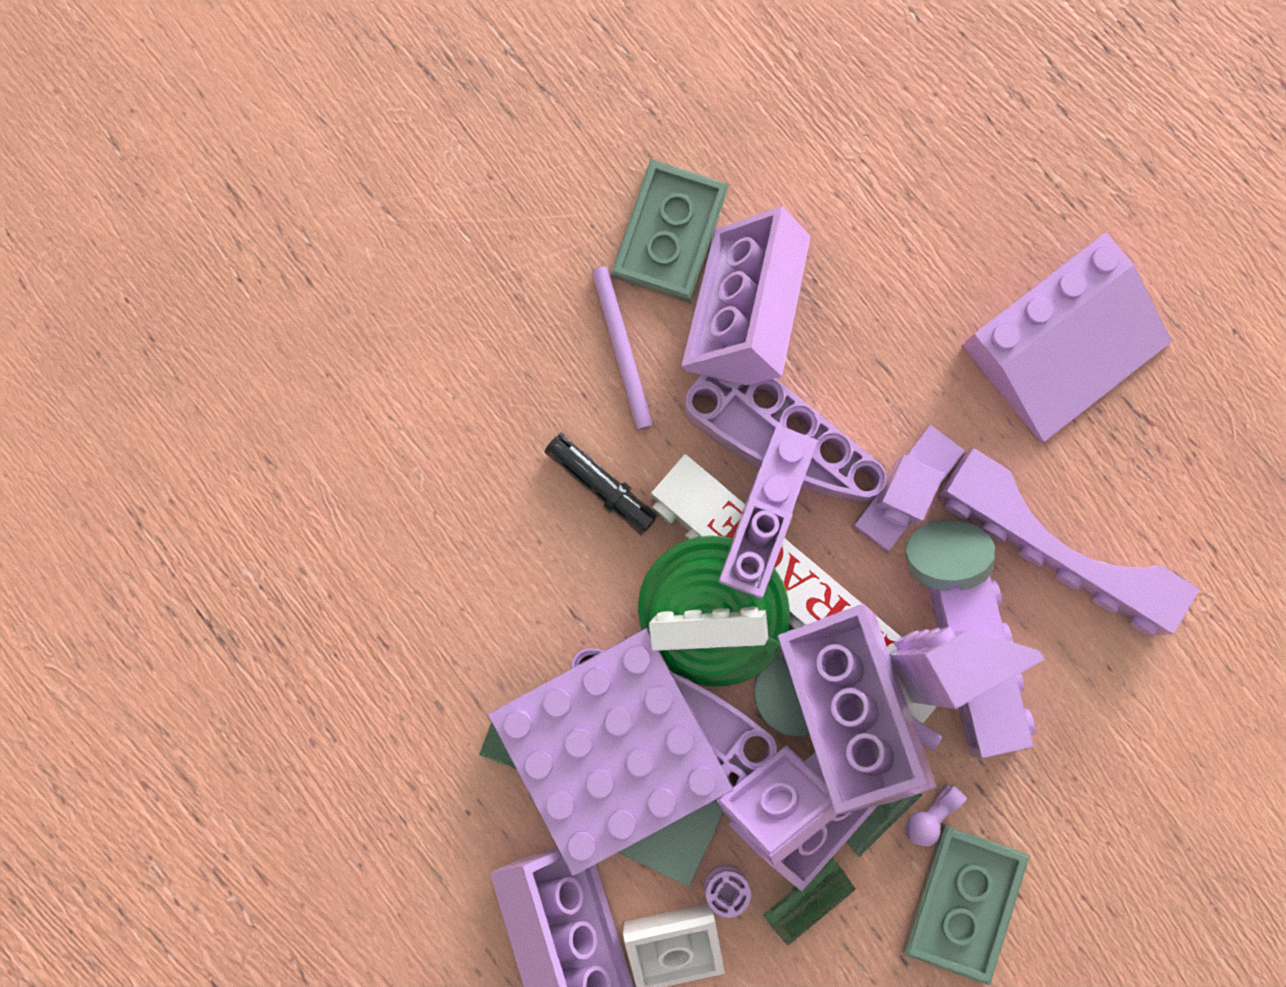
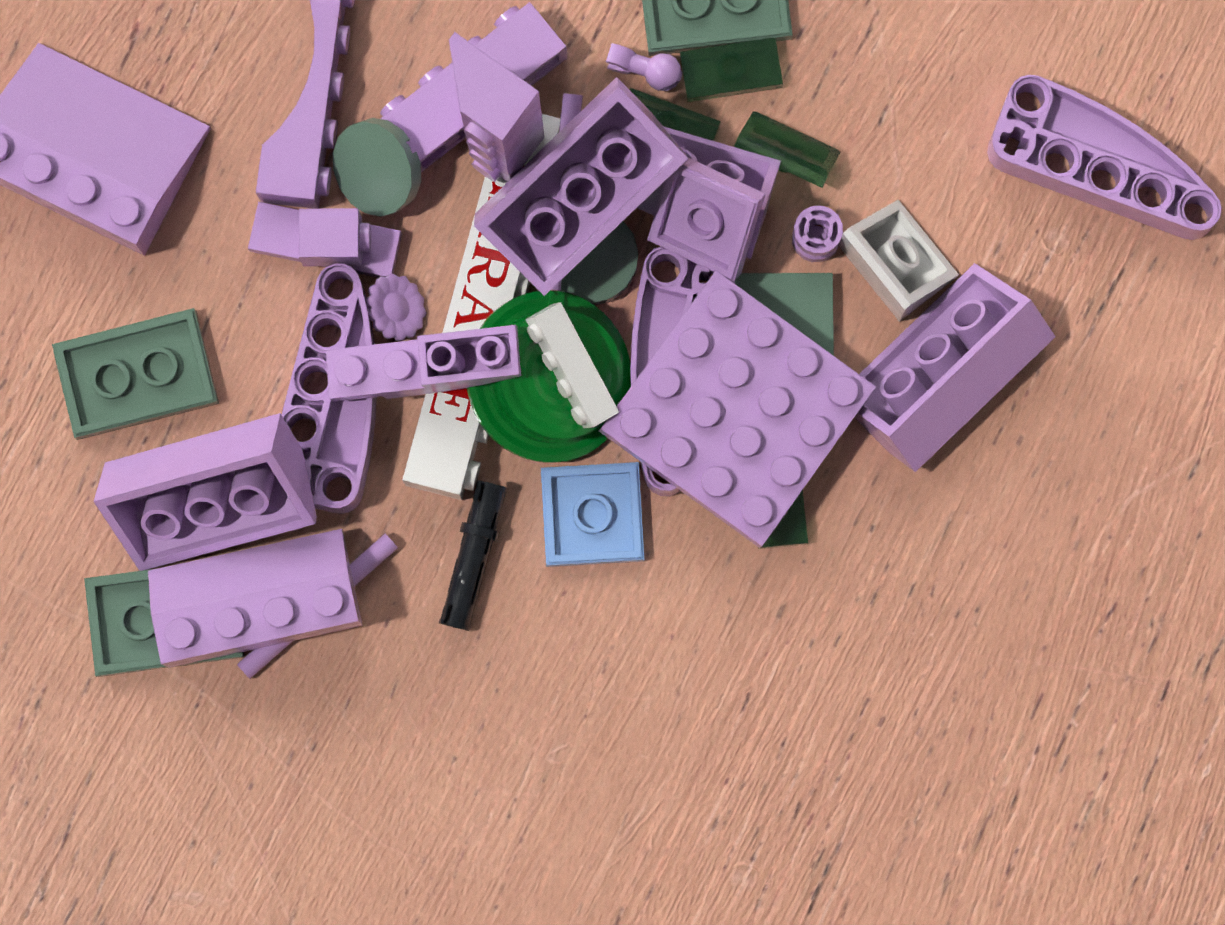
camera: 110 degrees left, 0 degrees up
(588, 593) = (592, 514): none -> light blue tile
(648, 296) = (253, 598): none -> lavender slope
(828, 517) = (395, 307): none -> lavender piece
(870, 295) = (135, 374): none -> sand green tile
(899, 887) = (731, 69): none -> clear green plate

